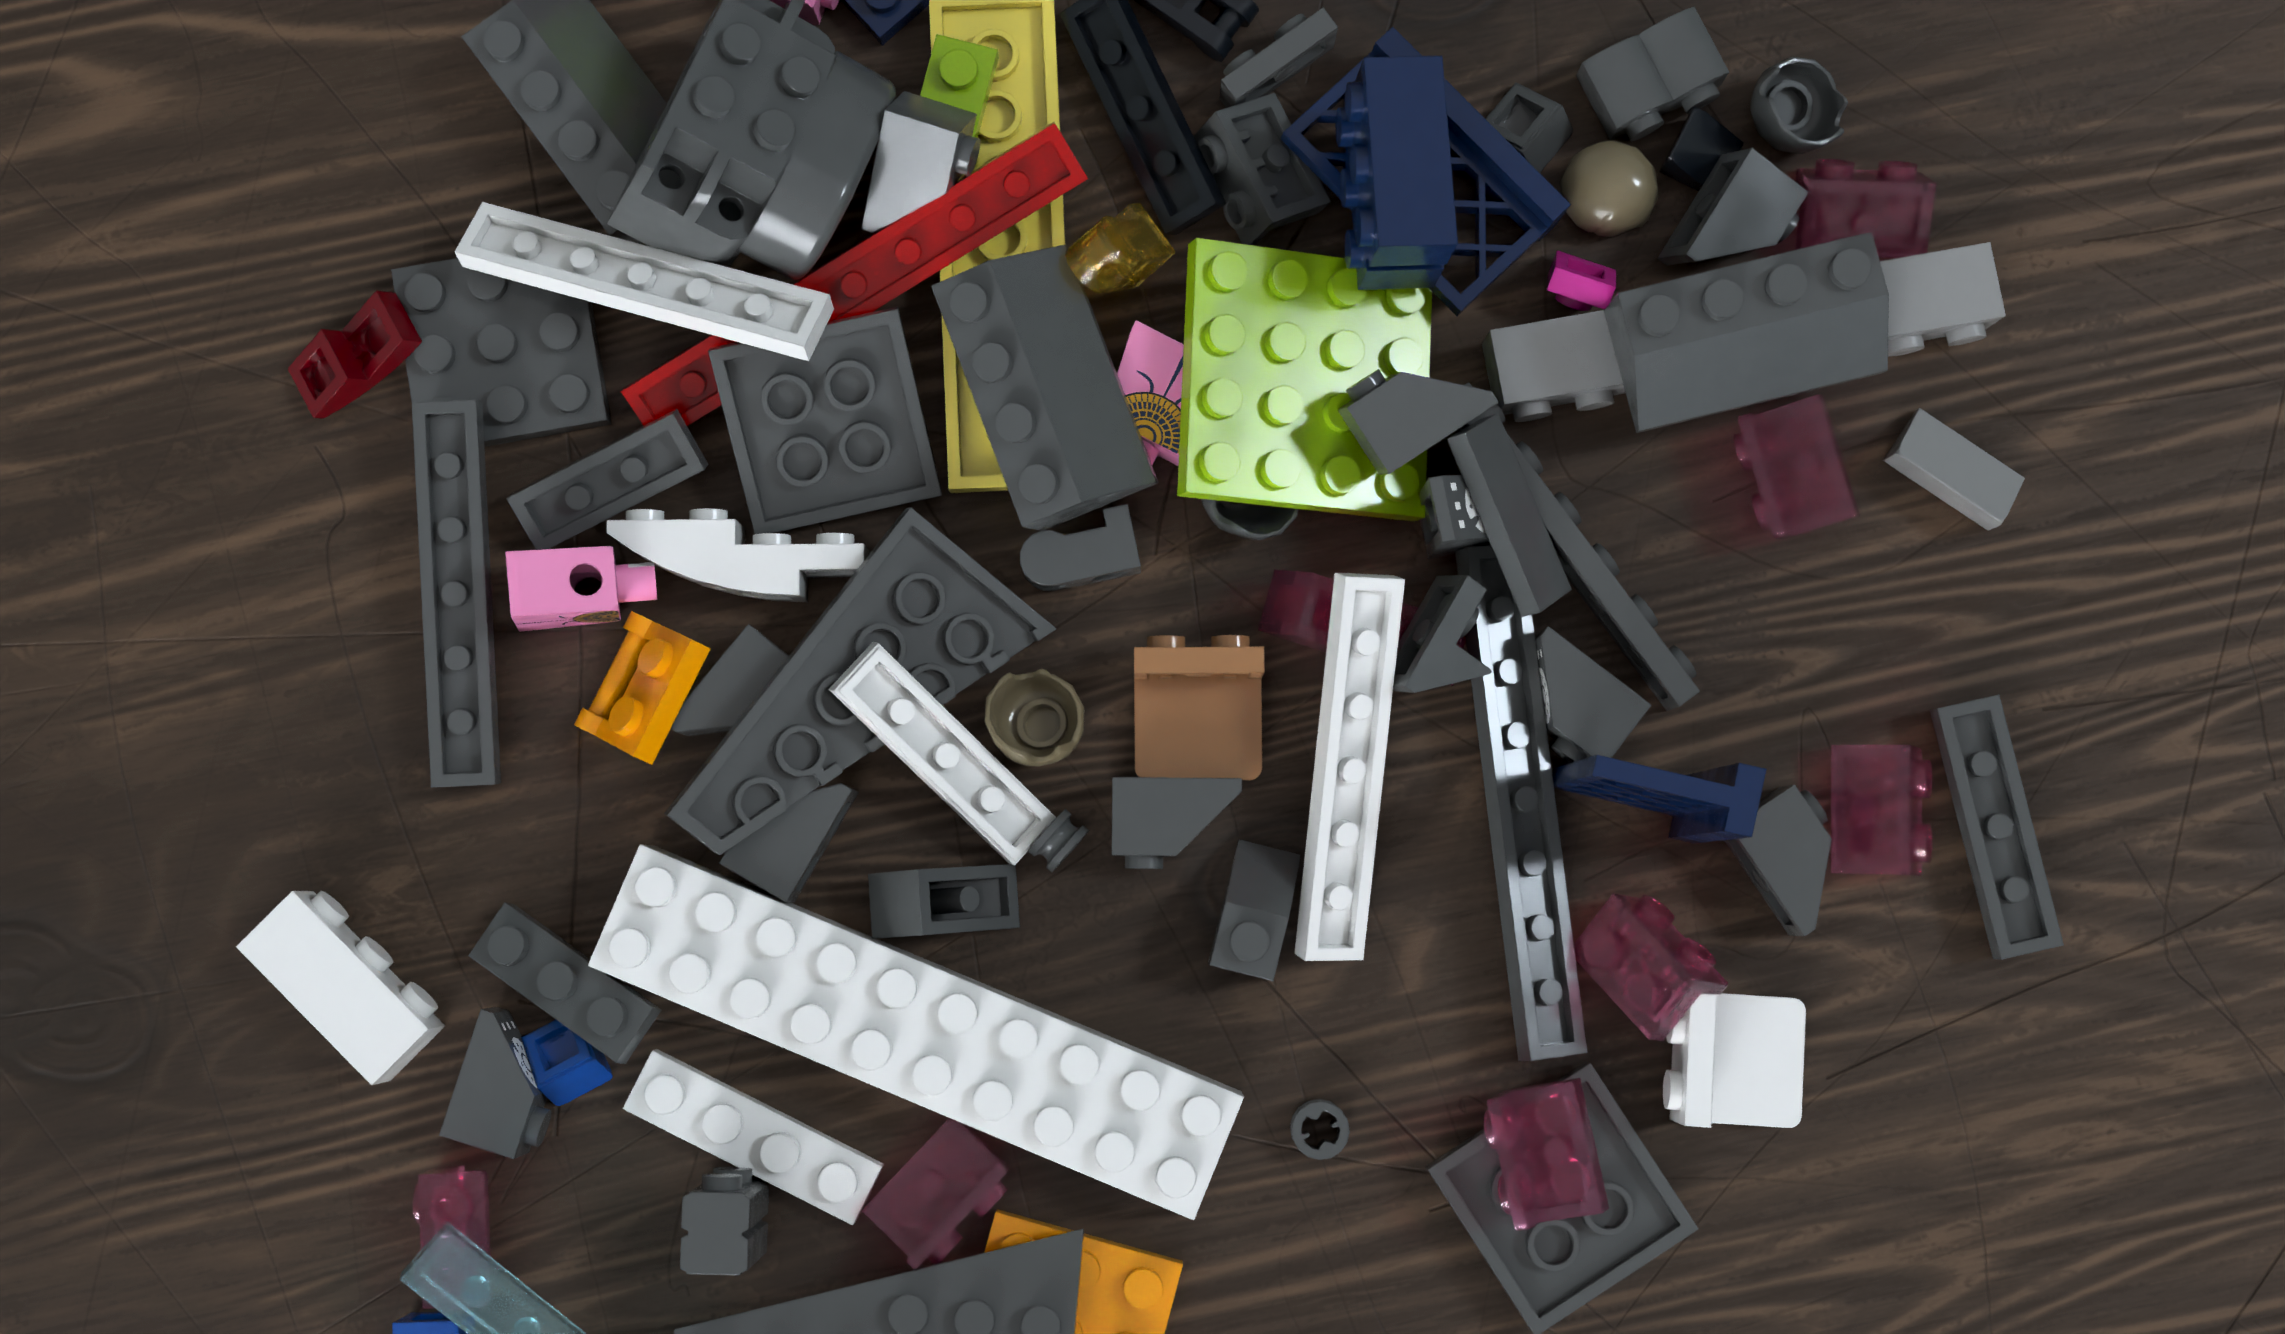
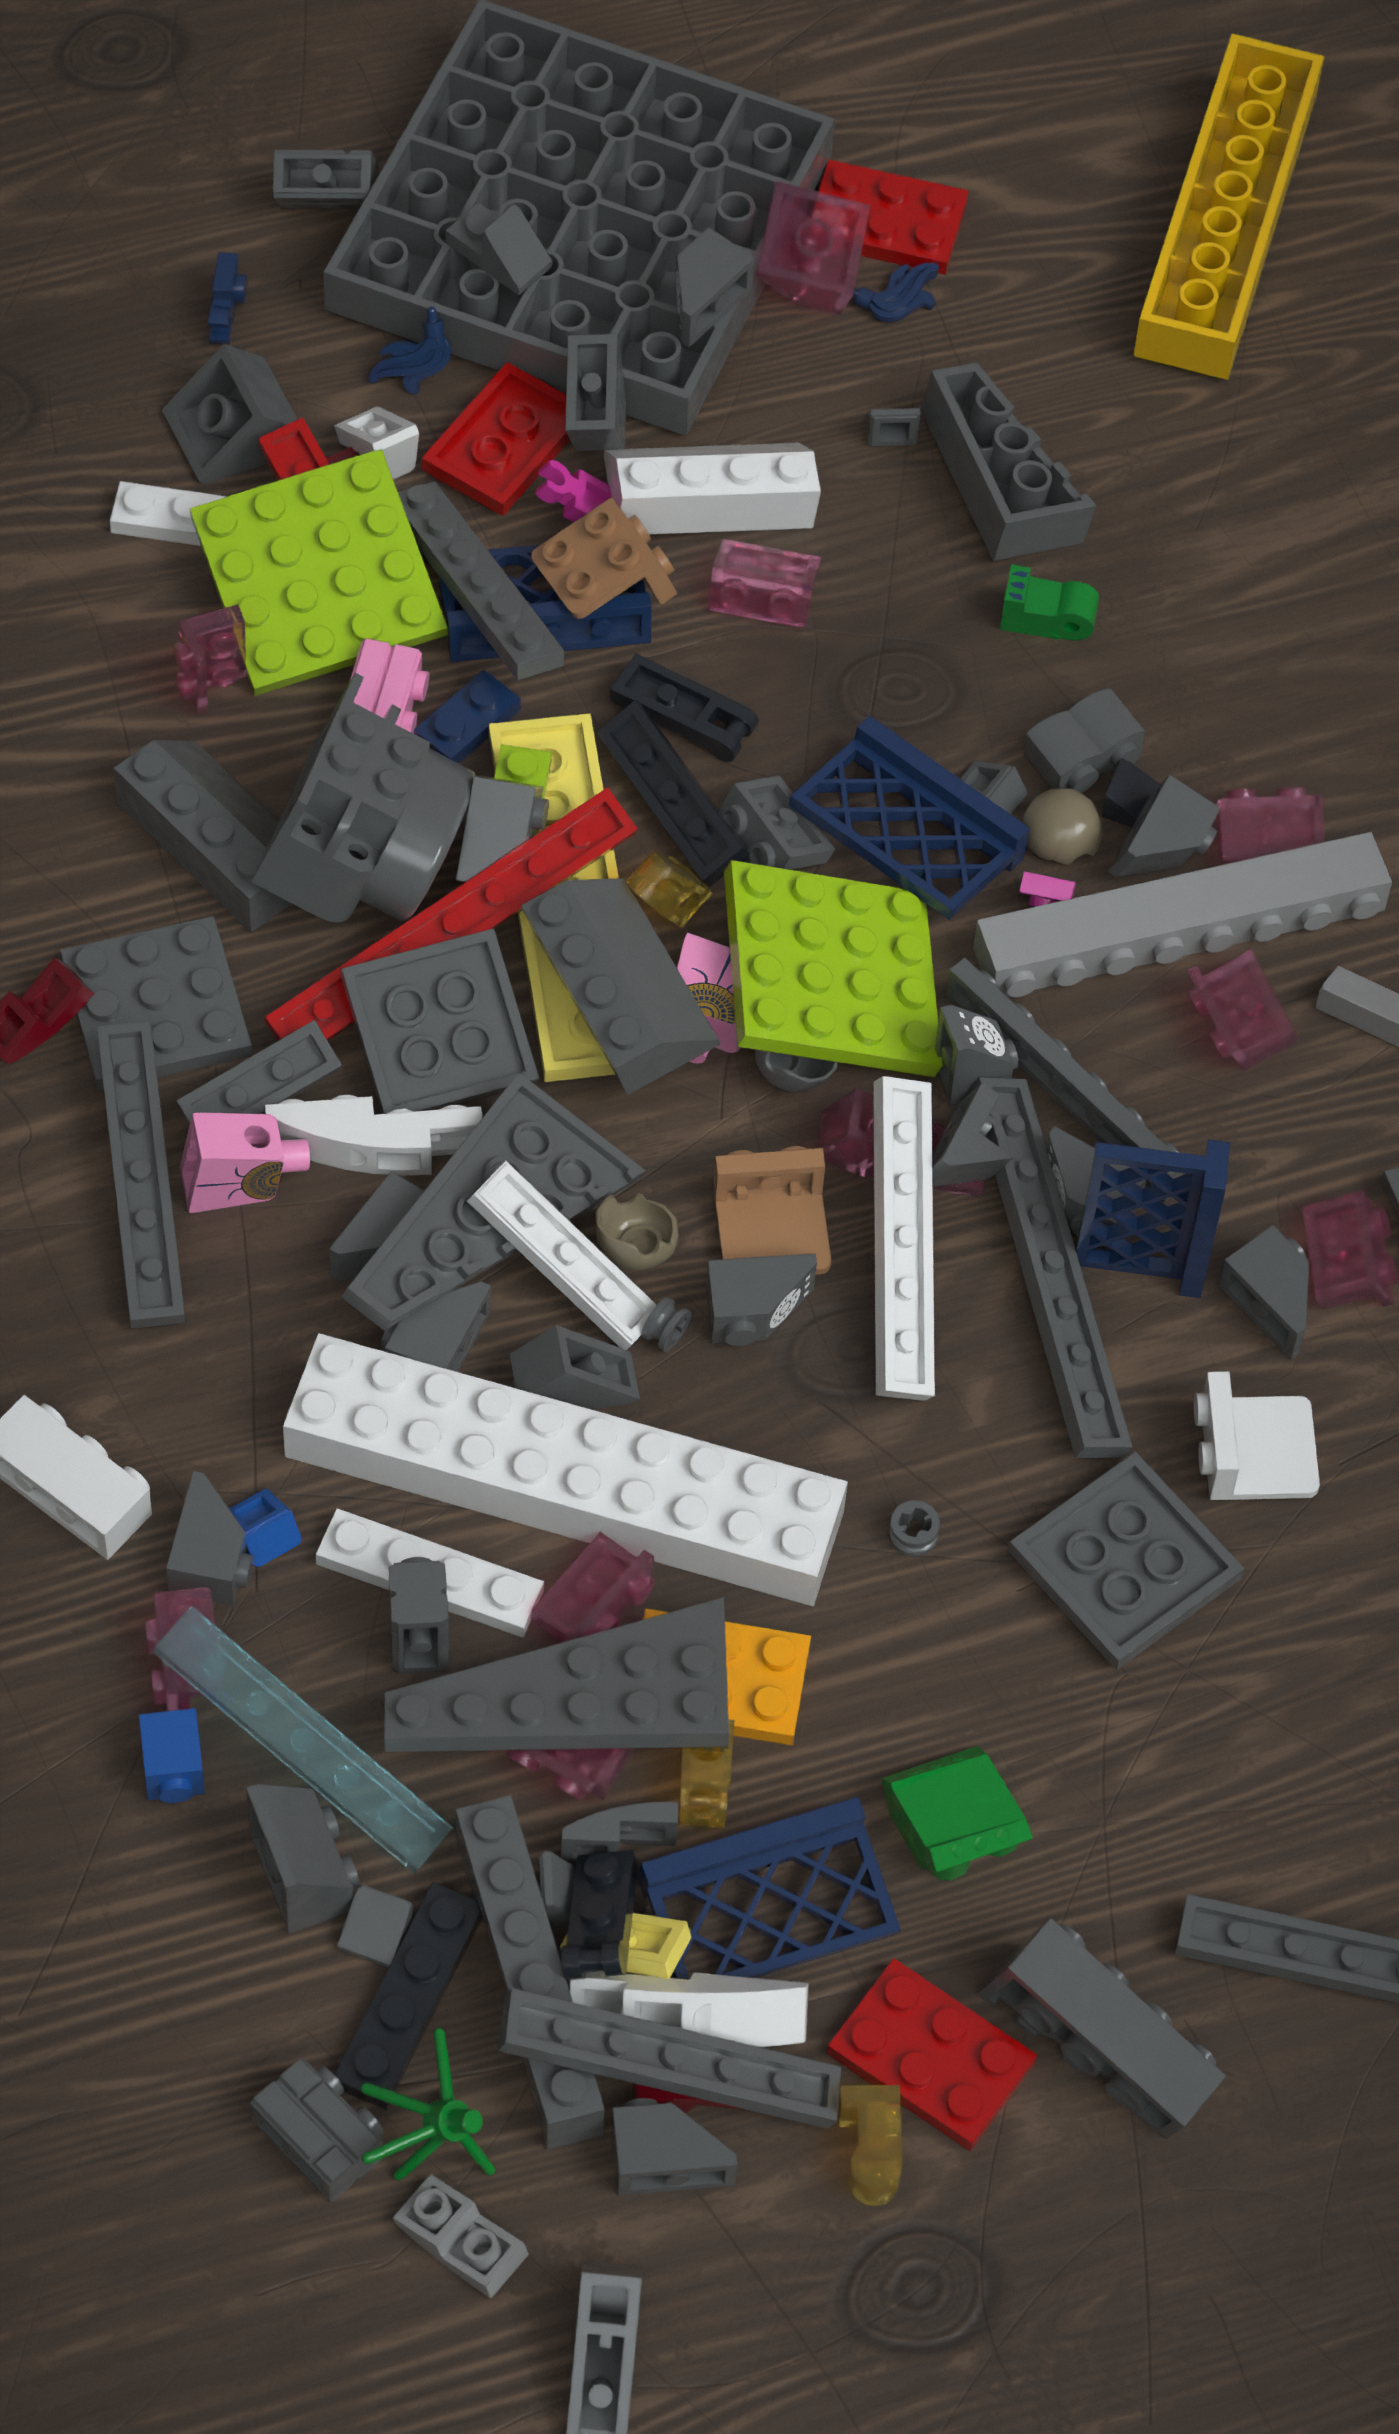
camera: 10 degrees left, 25 degrees down
(563, 984) = (258, 1459): dark grey plate -> none
(644, 688) = (304, 1231): light orange plate -> none
(645, 281) = (283, 924): white plate -> none
(1082, 558) = (661, 1115): dark grey leg -> none
(1255, 910) = (837, 1371): dark grey slope -> none
(1296, 47) = (783, 751): dark grey plate -> none
(1397, 173) = (887, 802): dark blue piece -> none
(1408, 414) = (919, 971): dark grey slope -> none
(1509, 515) = (1010, 1042): dark grey tile -> none
(1545, 1153) = (1106, 1506): clear pink bracket -> none
(1646, 963) = (1167, 1366): clear pink bracket -> none
(1751, 332) = (1185, 897): dark grey slope -> none
(1797, 106) = (1204, 755): dark grey hair -> none

